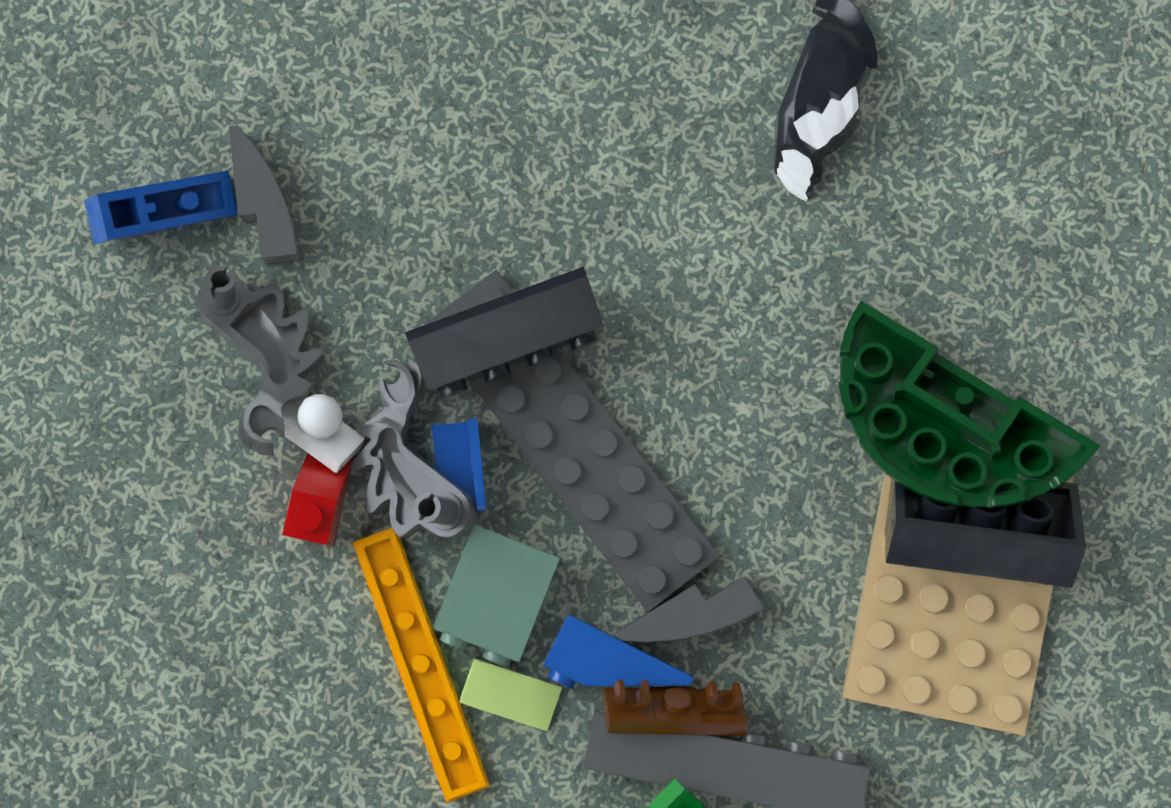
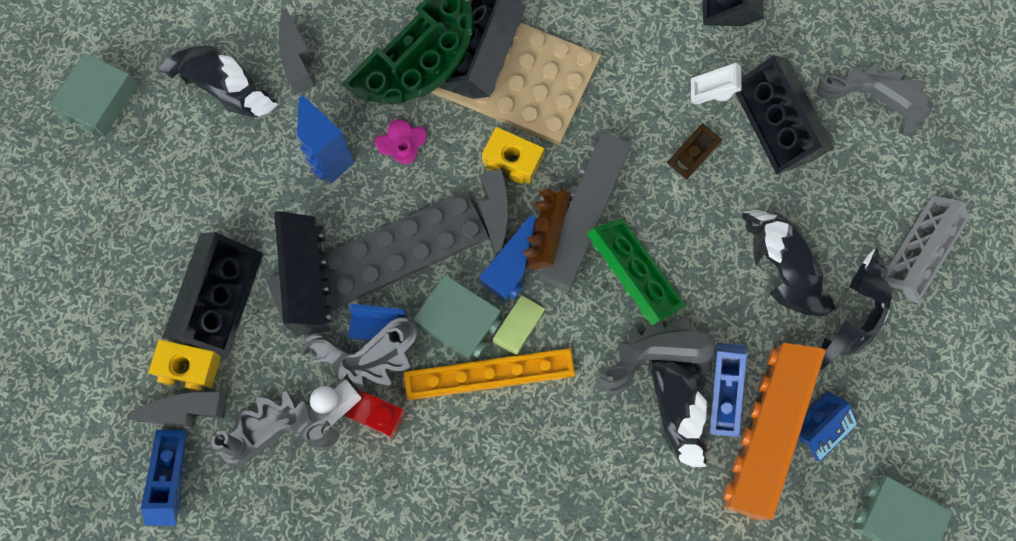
camera: 85 degrees left, 10 degrees down
(331, 157) = (170, 357): none -> yellow brick
(453, 194) = (213, 294): none -> black slope
(729, 302) = (322, 143): none -> blue slope
(791, 423) = (401, 137): none -> dark pink plate
(805, 648) = (504, 144): none -> yellow brick
(898, 205) = (294, 54): none -> dark grey slope

